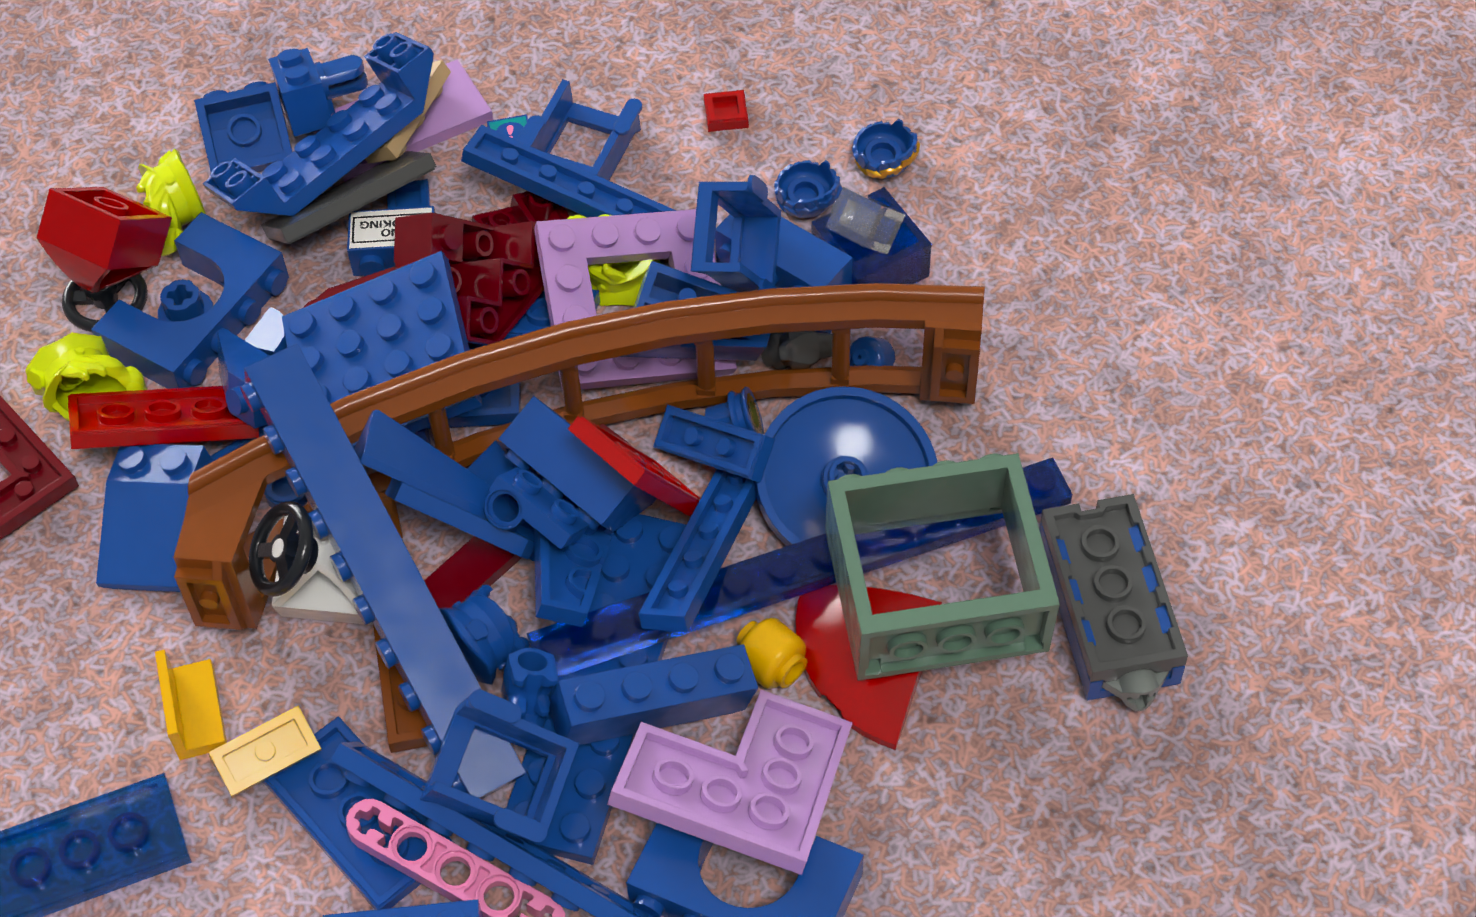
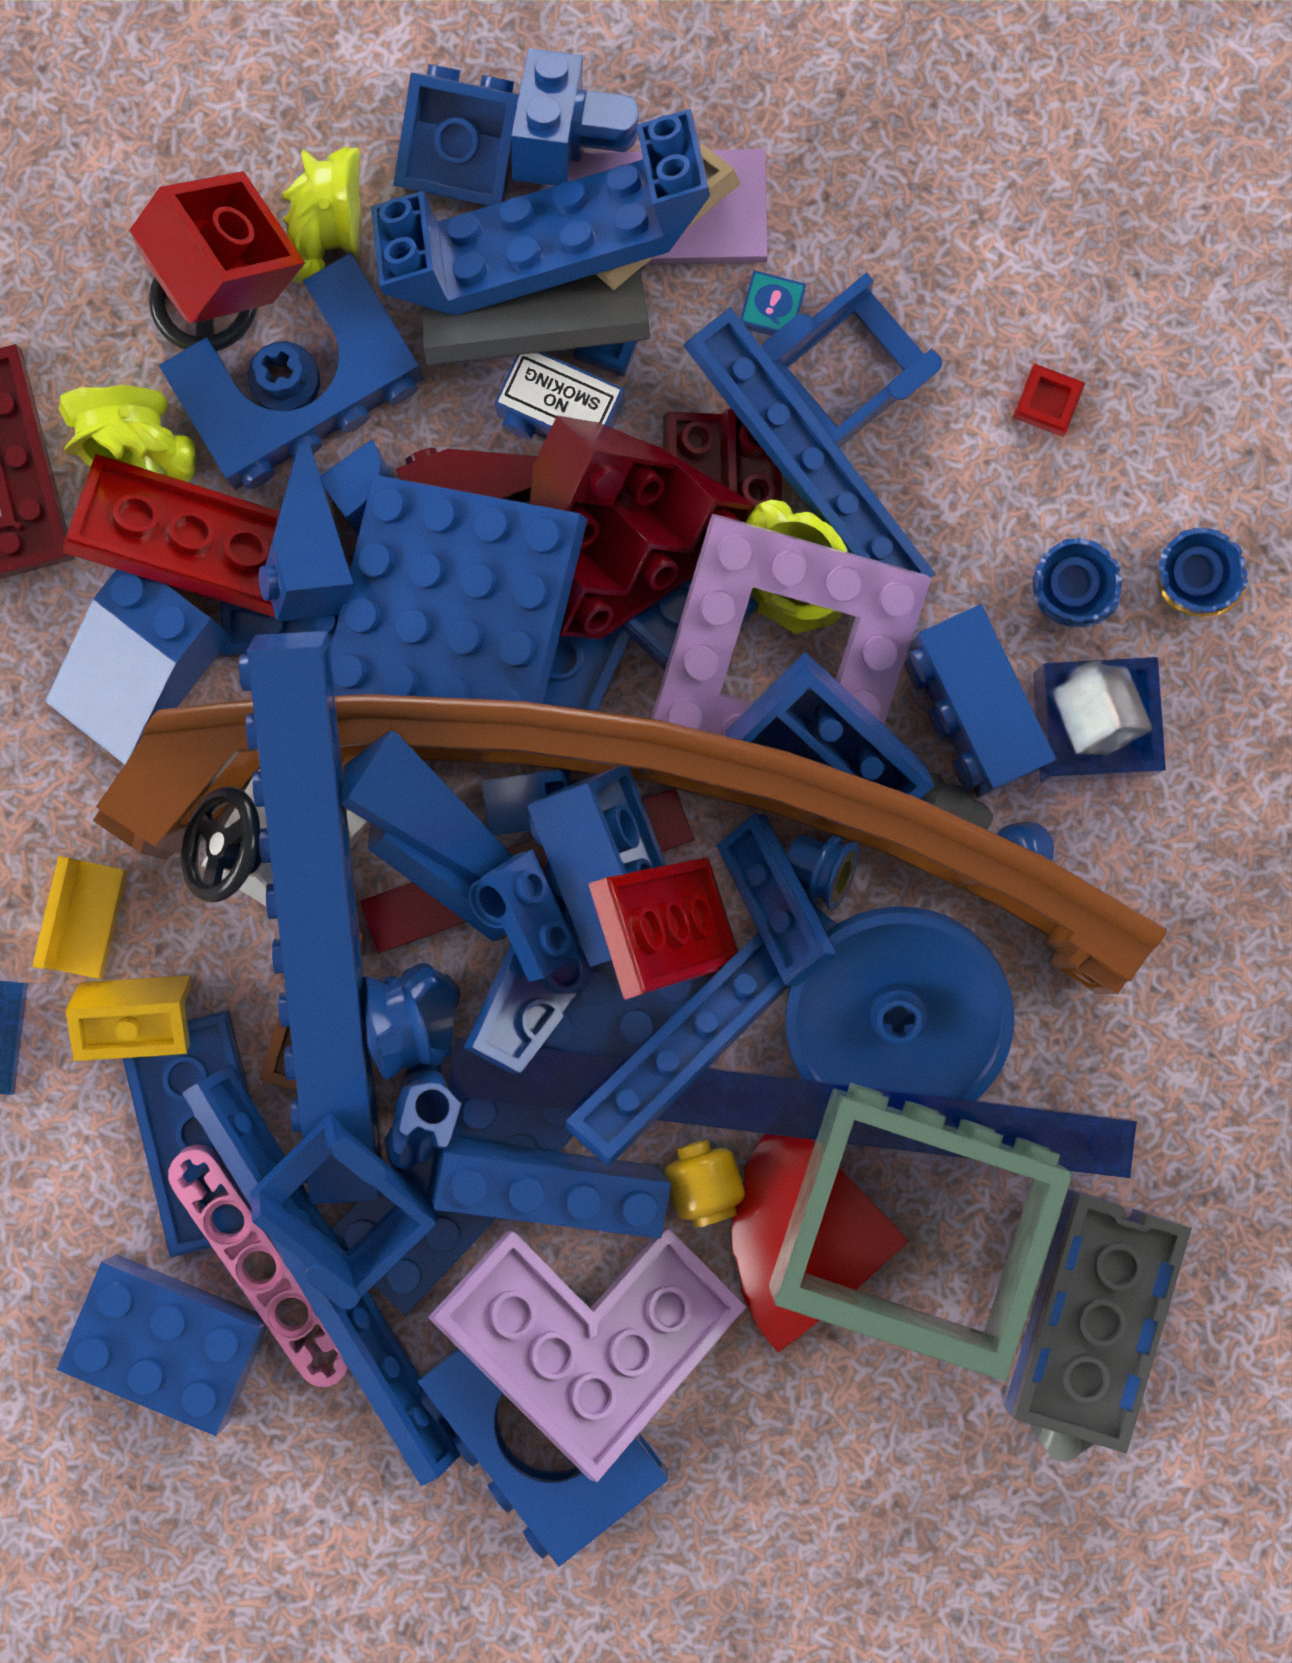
camera: 30 degrees right, 30 degrees up
(753, 234) = (931, 713): blue piece -> none

